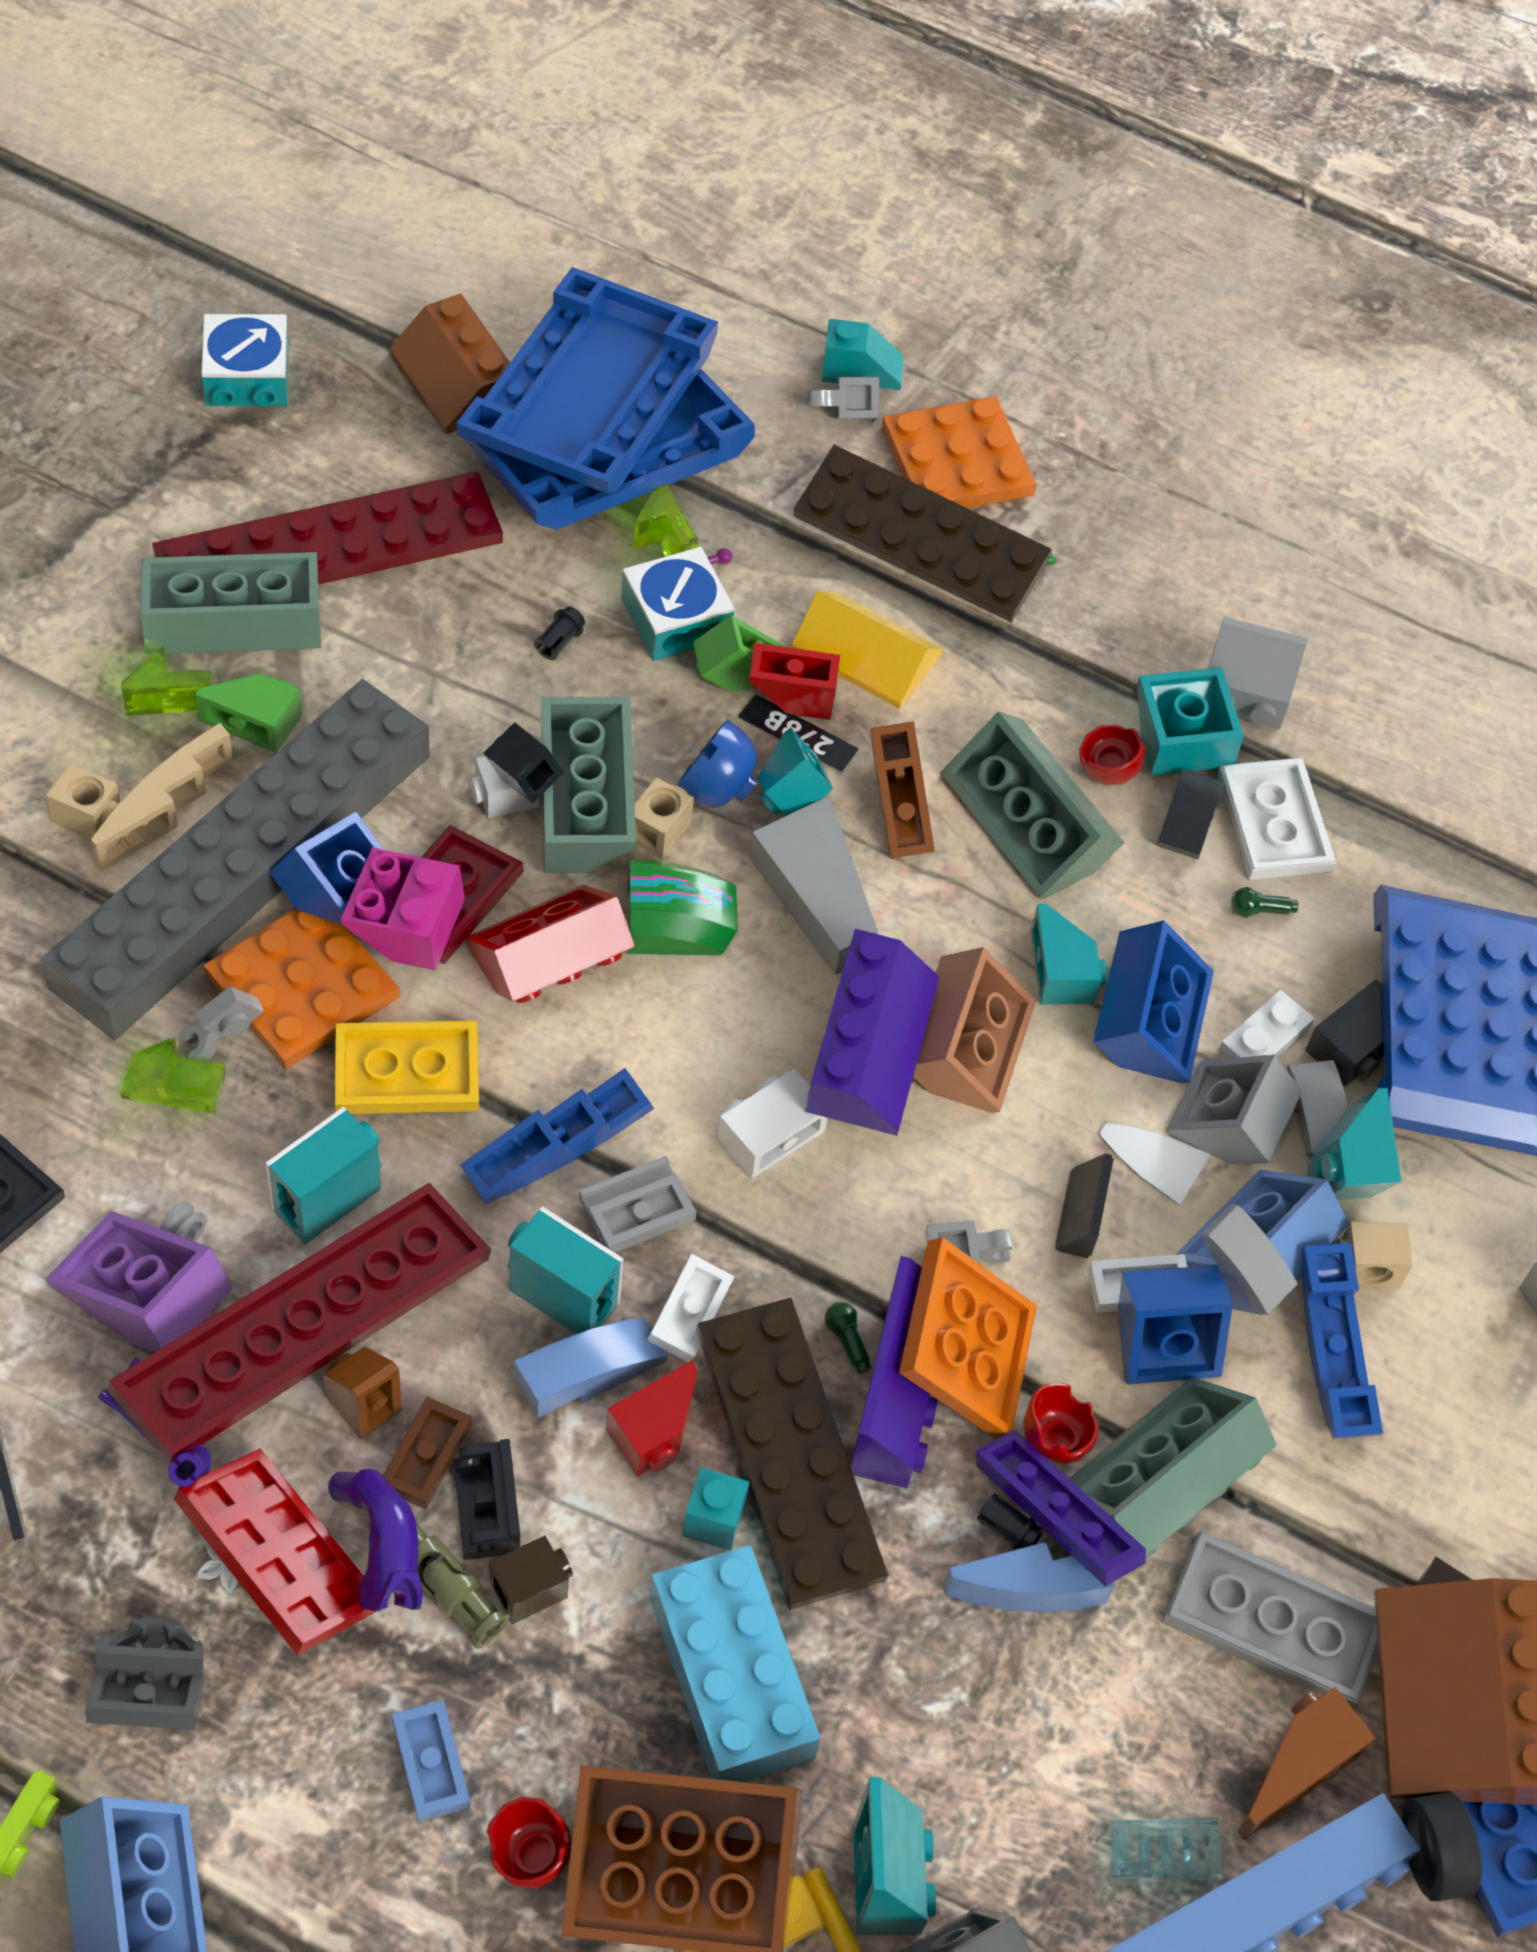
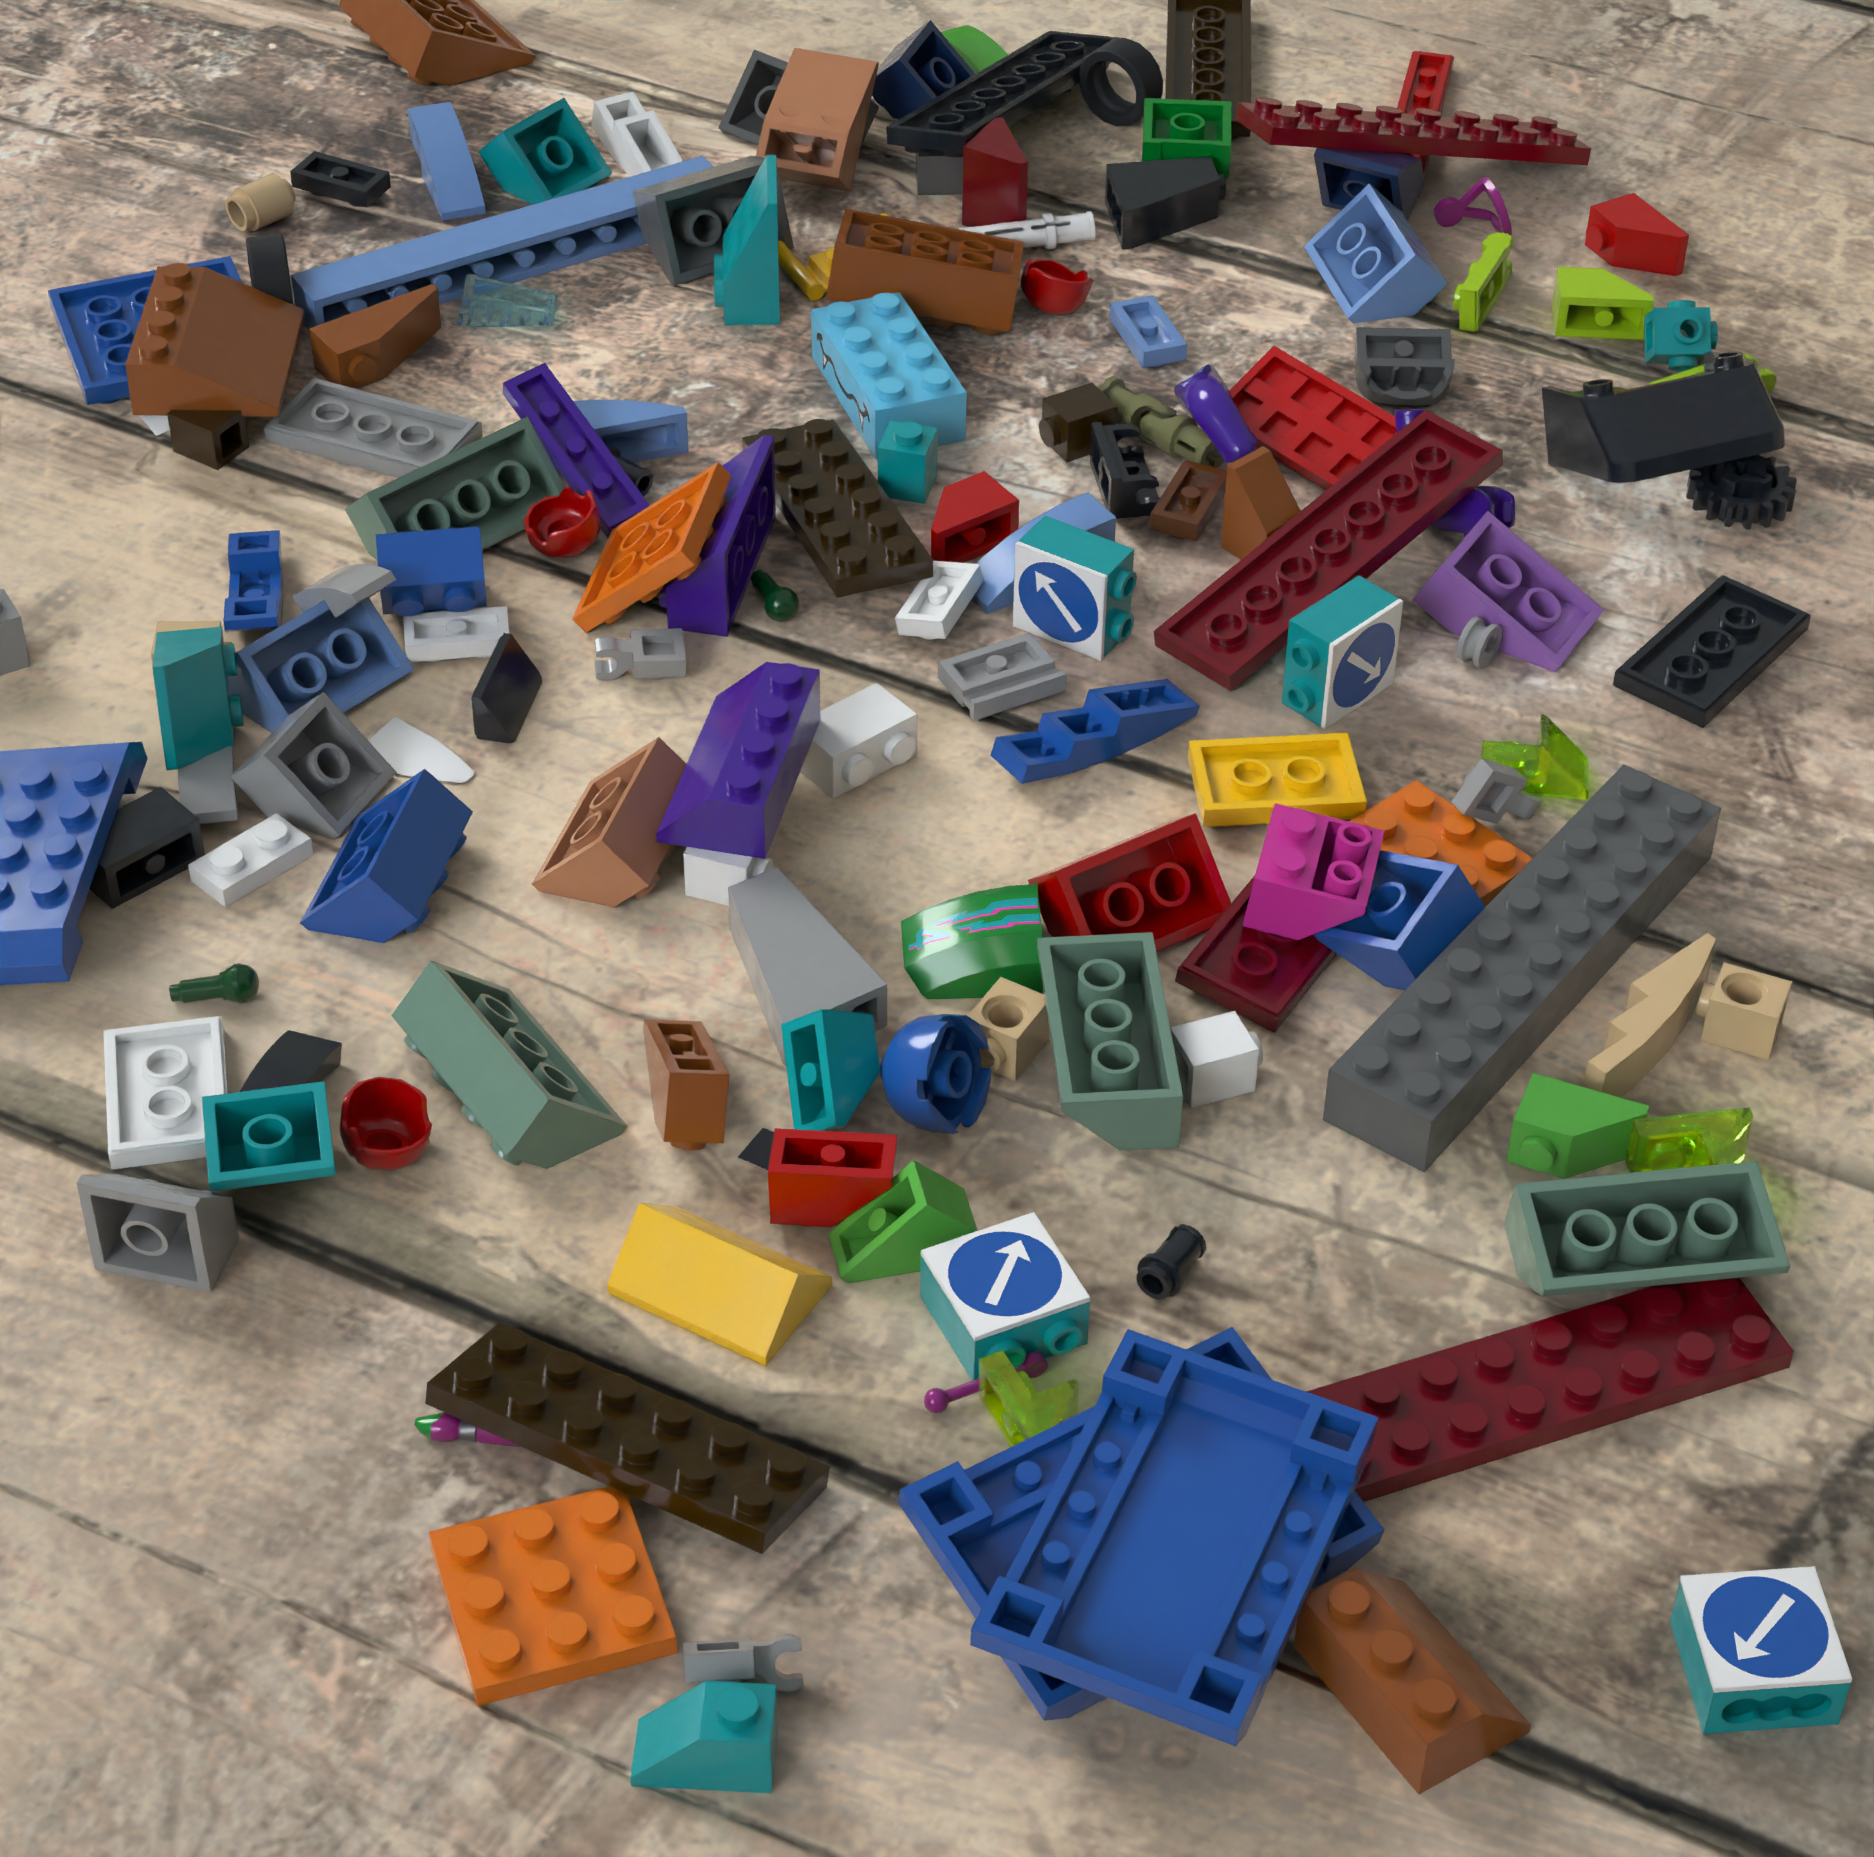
camera: 175 degrees left, 15 degrees down
(523, 762) = (1194, 991): black brick -> none
(1065, 960) = (490, 900): teal slope -> none

